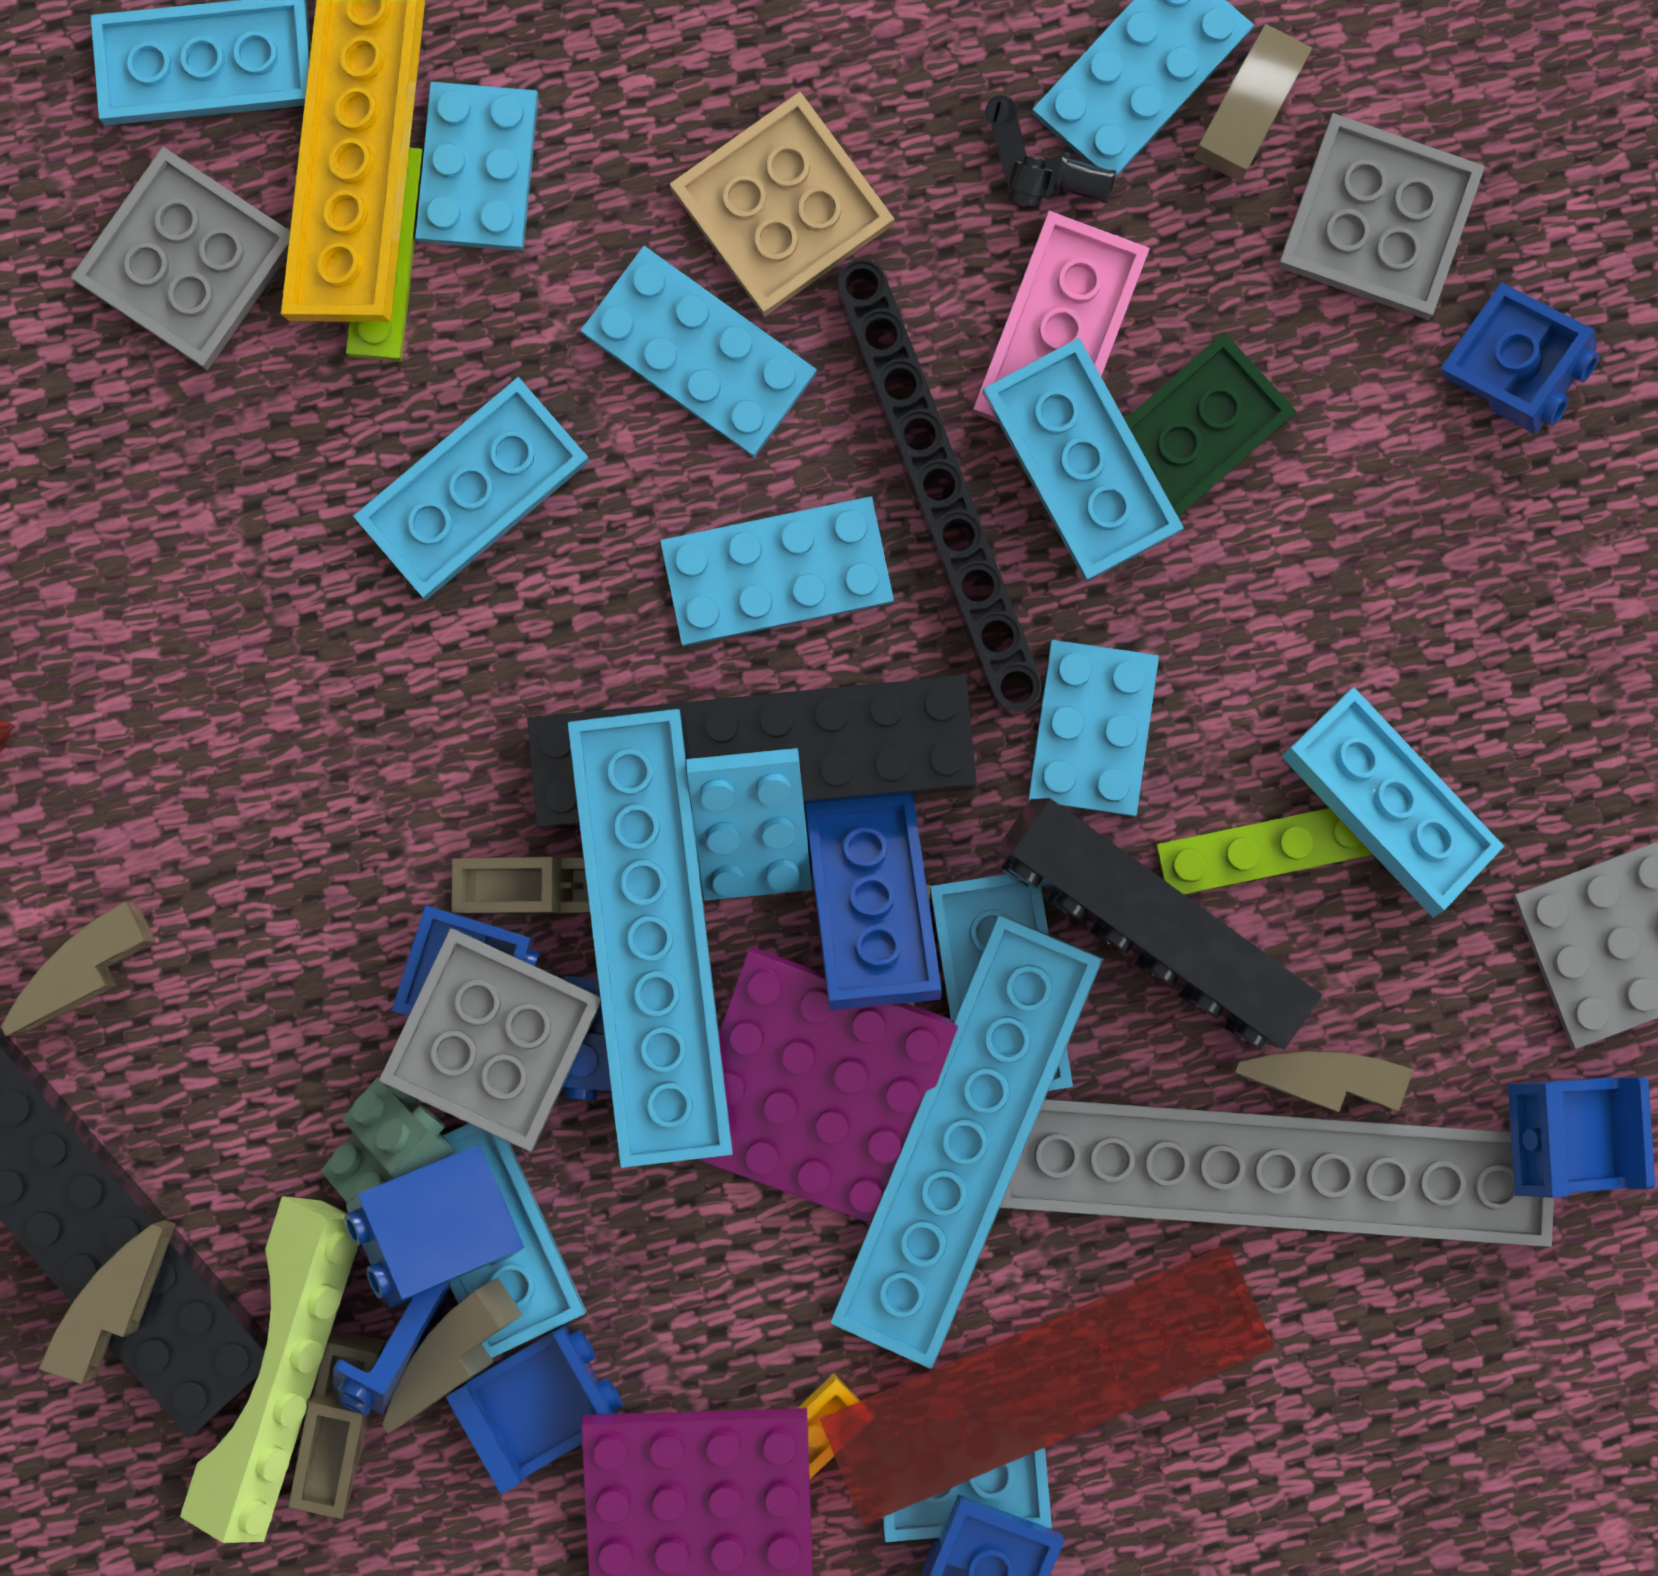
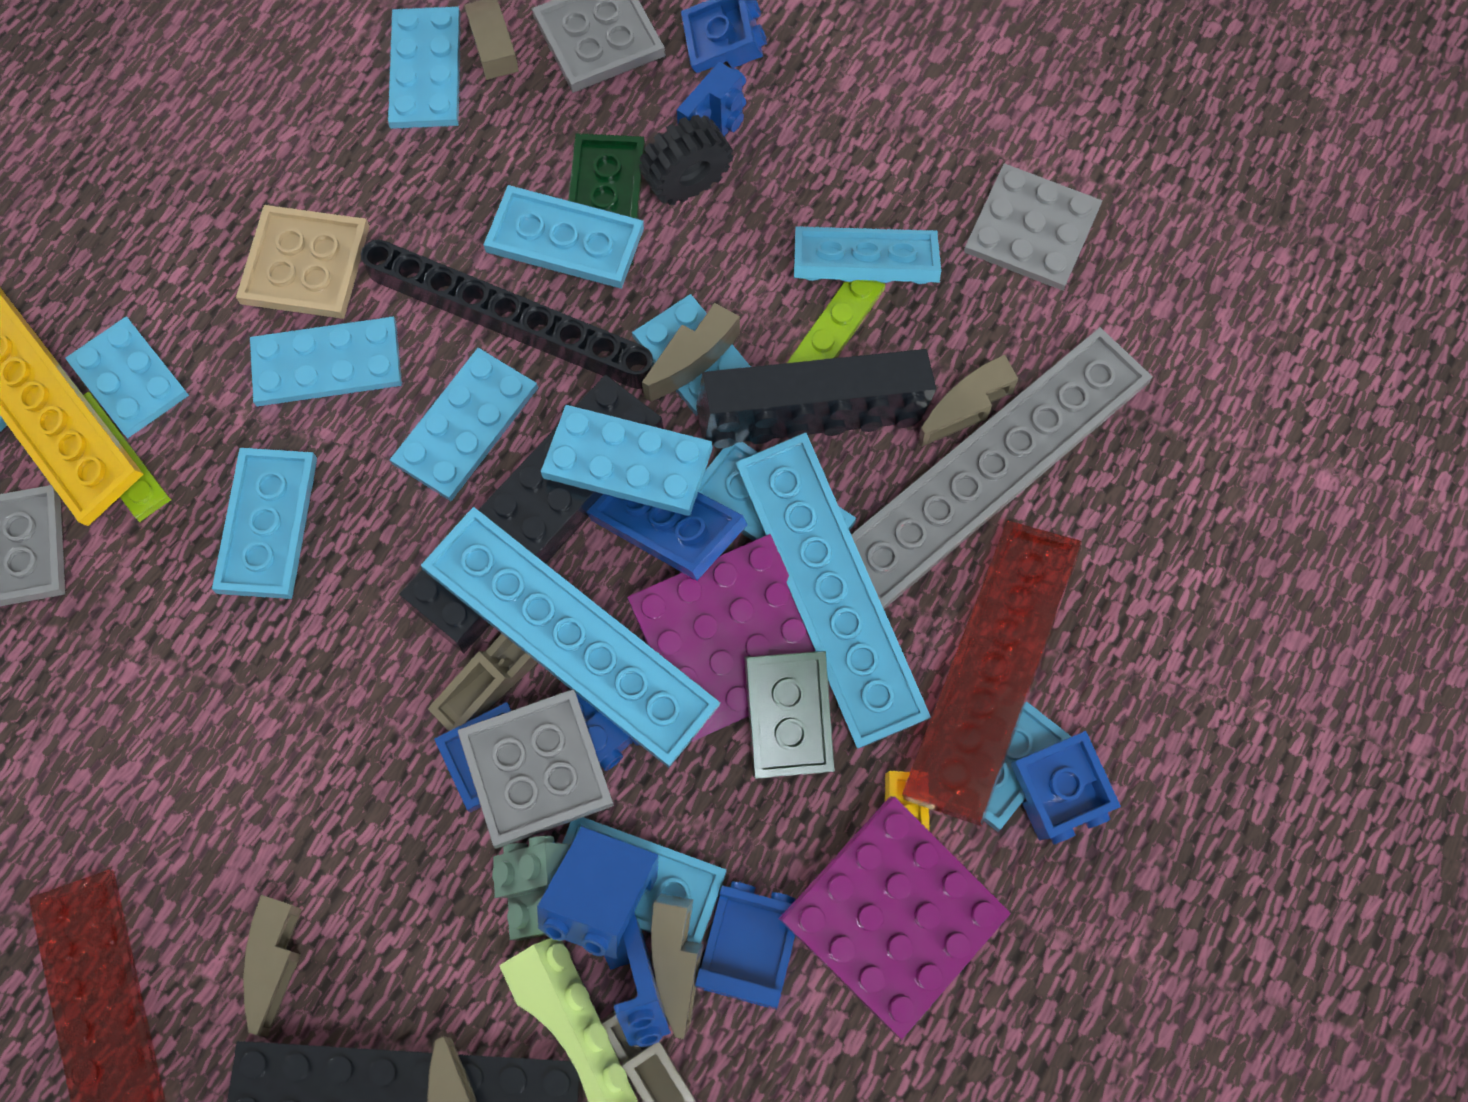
camera: 45 degrees left, 15 degrees down
(749, 824) = (567, 535): medium azure plate -> none
(795, 1225) = (789, 714): none -> plate
(888, 804) = (627, 460): none -> medium azure plate
(1035, 177) = (418, 147): black pin -> none
(1070, 291) = (480, 178): bright pink plate -> none
(1083, 739) = (692, 352): none -> dark tan slope
(1304, 498) = (686, 159): none -> black tyre
(1410, 457) = (718, 98): none -> blue plate
(1581, 1136) = (1111, 313): blue panel -> none

